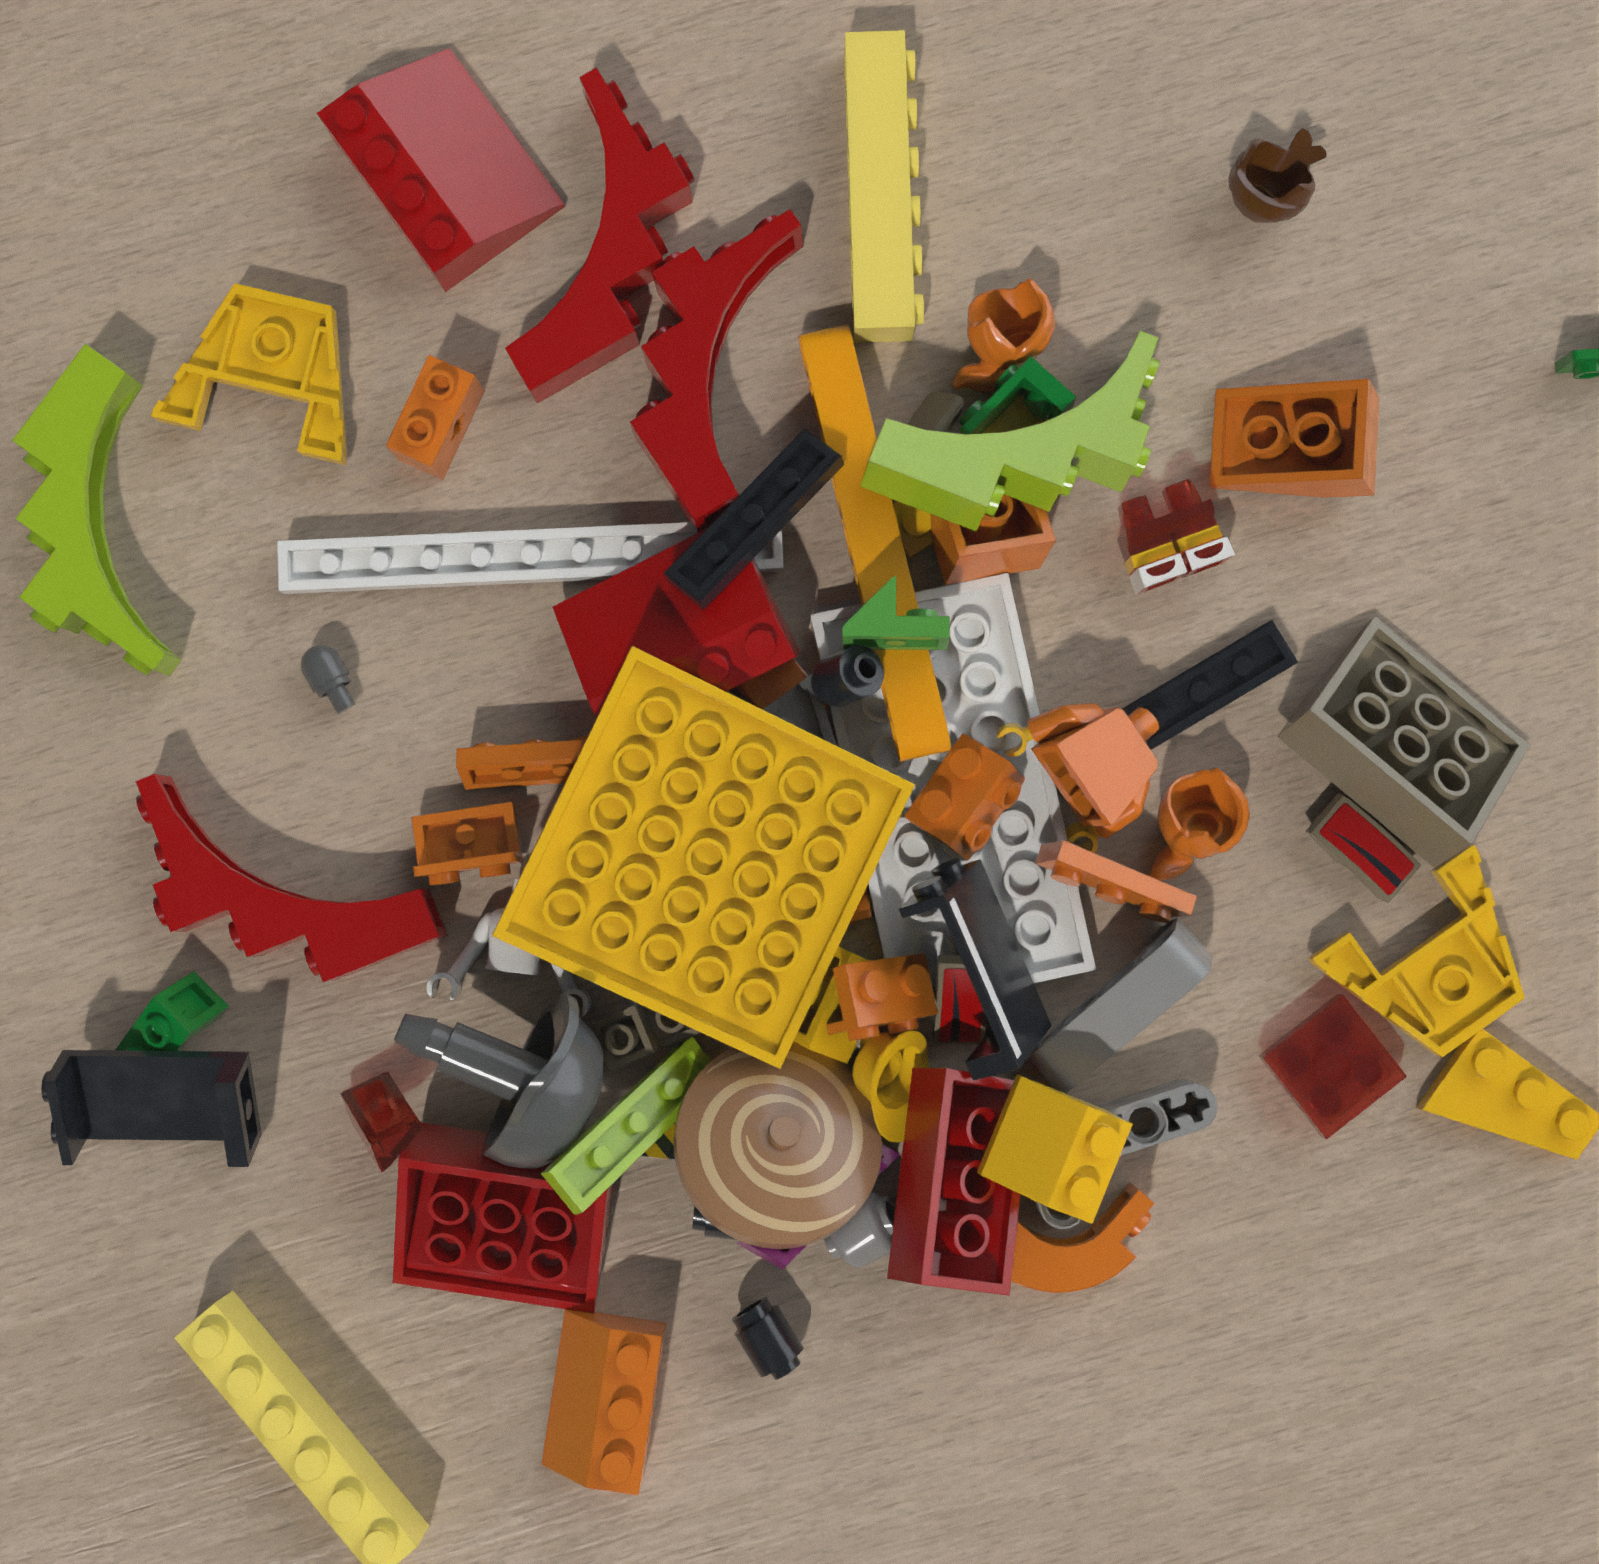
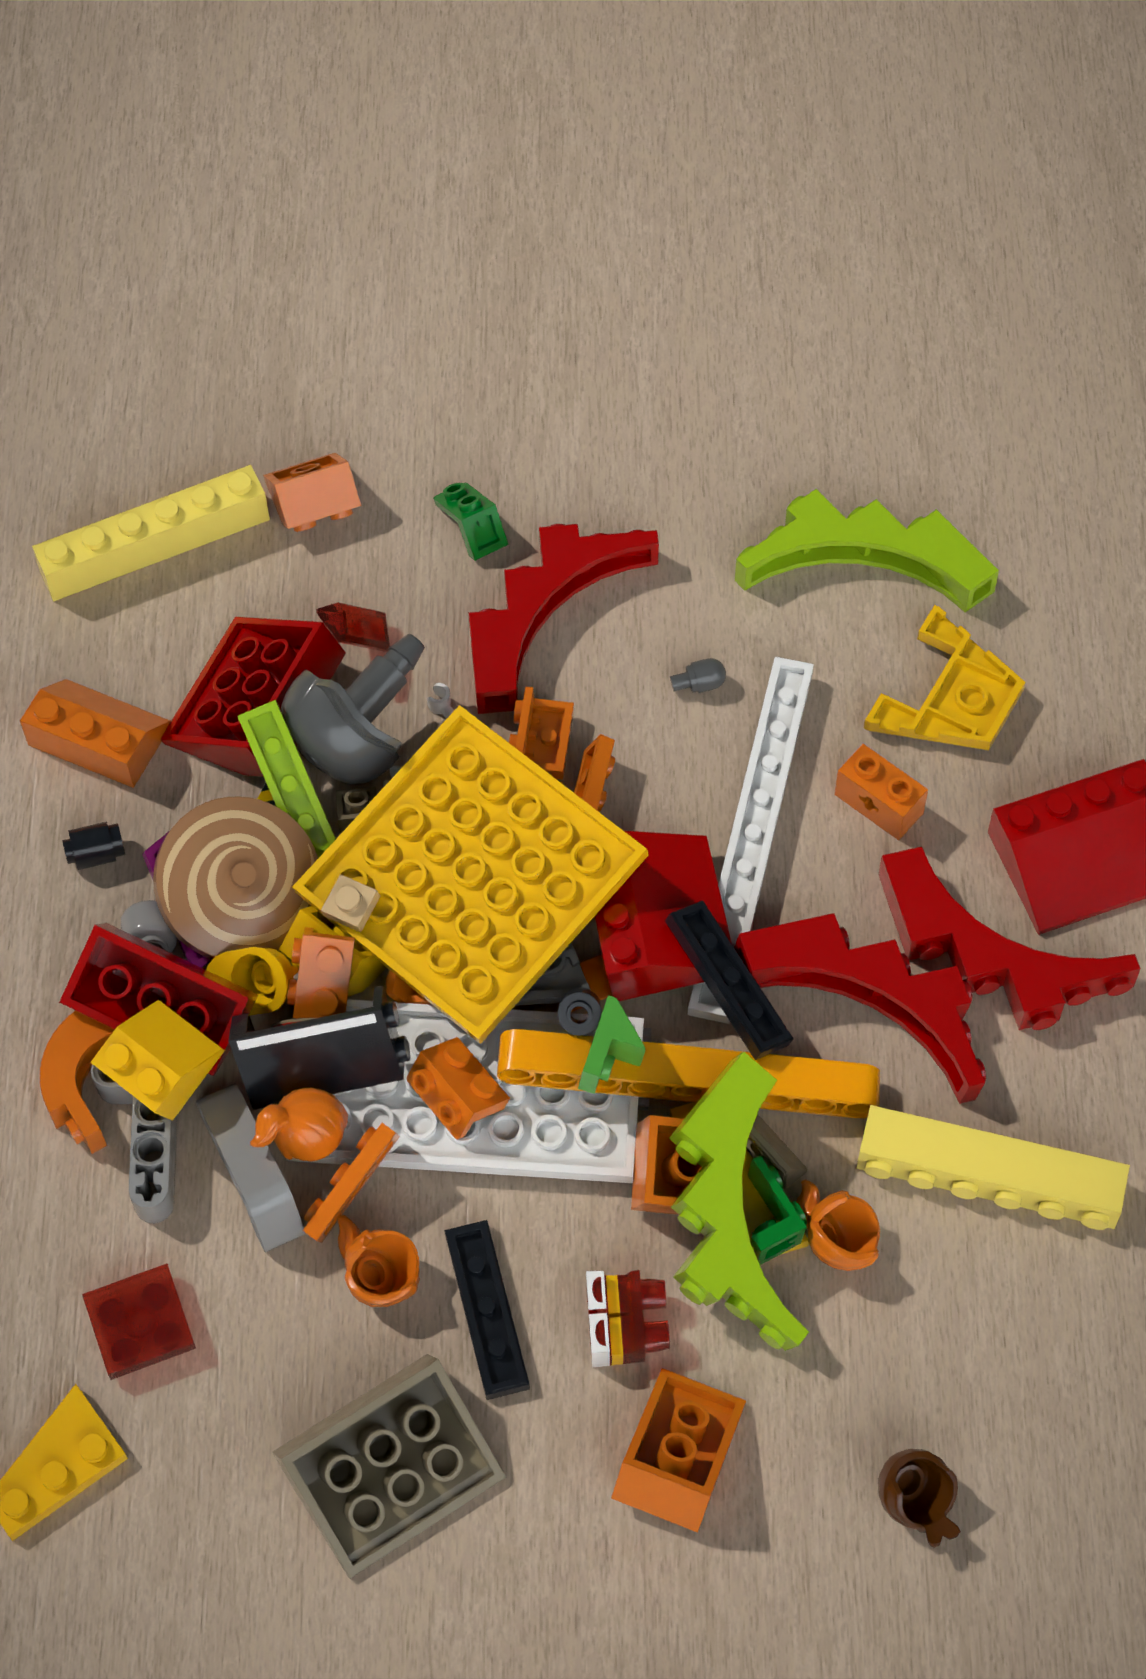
camera: 105 degrees right, 25 degrees down
(153, 1099) = (425, 494): black panel -> none
(180, 1247) = (313, 491): none -> orange slope
(789, 988) = (350, 903): none -> tan plate
(1072, 952) = (303, 1125): none -> orange hair
(1095, 762) = (452, 1188): orange torso -> none
(1363, 847) = (309, 1401): slope -> none
(1447, 982) = (172, 1437): yellow wing -> none

